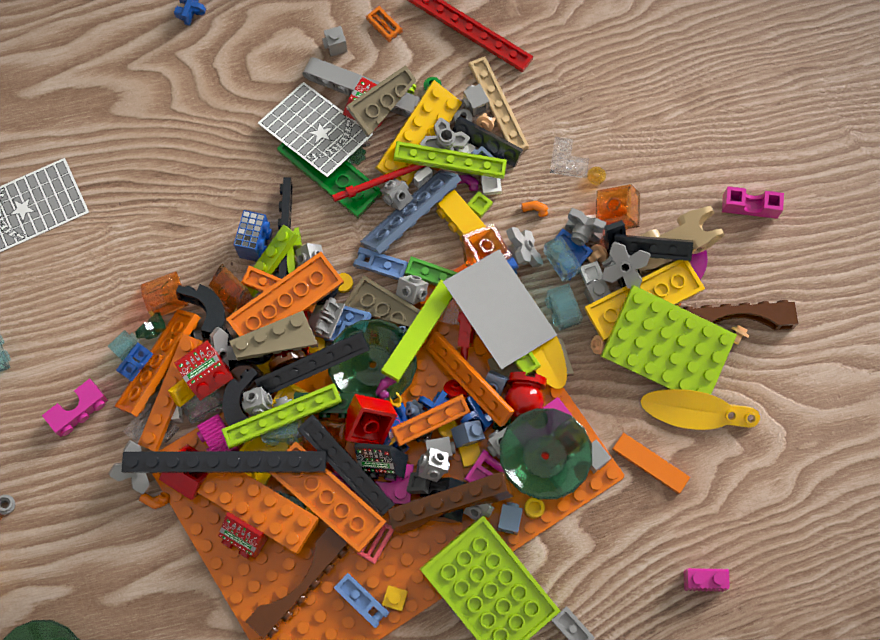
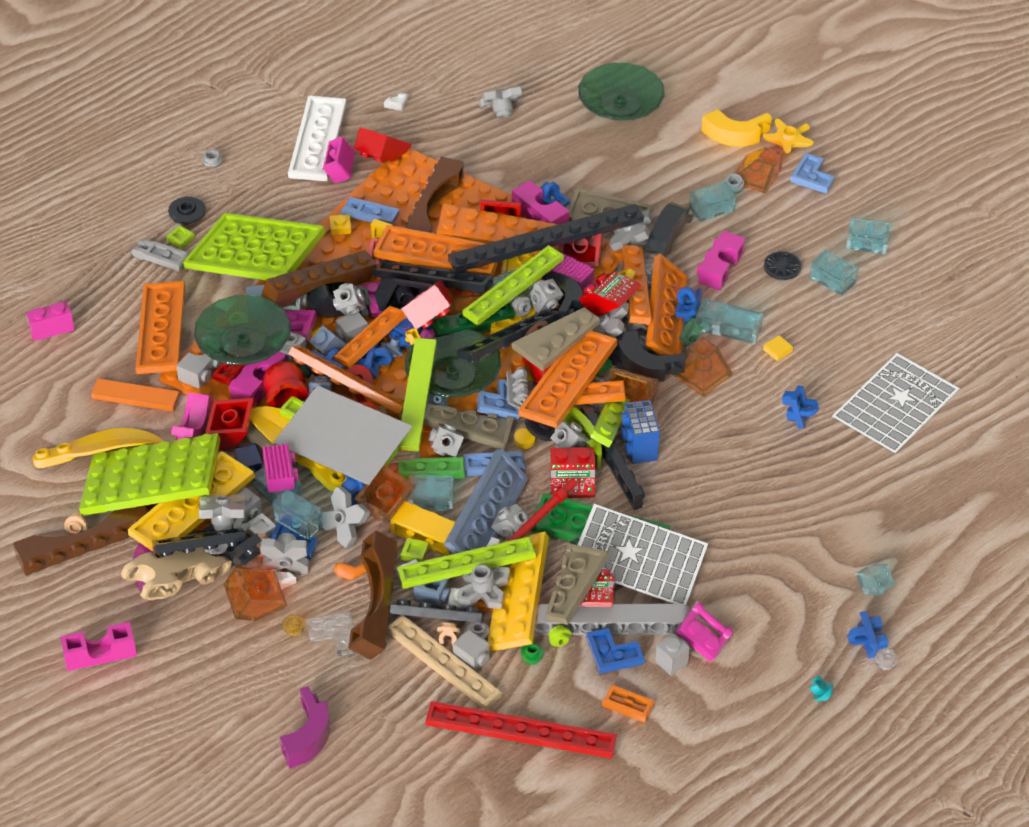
camera: 155 degrees right, 25 degrees down
(26, 384) = (782, 265): none -> black wheel
(39, 484) = (712, 201): none -> clear light blue brick
(87, 294) = (778, 348): none -> yellow tile
(95, 460) = (667, 227): none -> black arch
(102, 326) = (739, 323): none -> clear light blue brick
(114, 215) = (800, 406): none -> blue hips
(146, 524) = (590, 203): none -> dark tan wing
(157, 43) = (875, 579): none -> clear light blue brick
(183, 542) = (553, 189): none -> blue hips
(208, 551) = (532, 199): none -> dark pink arch
(305, 44) = (700, 636): none -> dark pink plate
(324, 229) = (576, 464): none -> red slope
(360, 566) = (377, 228): none -> yellow plate
(377, 59) = (612, 657): none -> blue plate
(443, 250) = (432, 491): none -> clear light blue brick
(512, 198) = (379, 559): none -> reddish brown arch
(562, 304) = (278, 467): none -> dark pink brick
(579, 340) = (249, 457): none -> dark blue brick
(583, 379) = (230, 421): none -> red slope
(606, 531) = (160, 327): none -> orange plate
(613, 398) = (195, 417): none -> dark pink arch
(620, 72) = (311, 738): none -> magenta arch

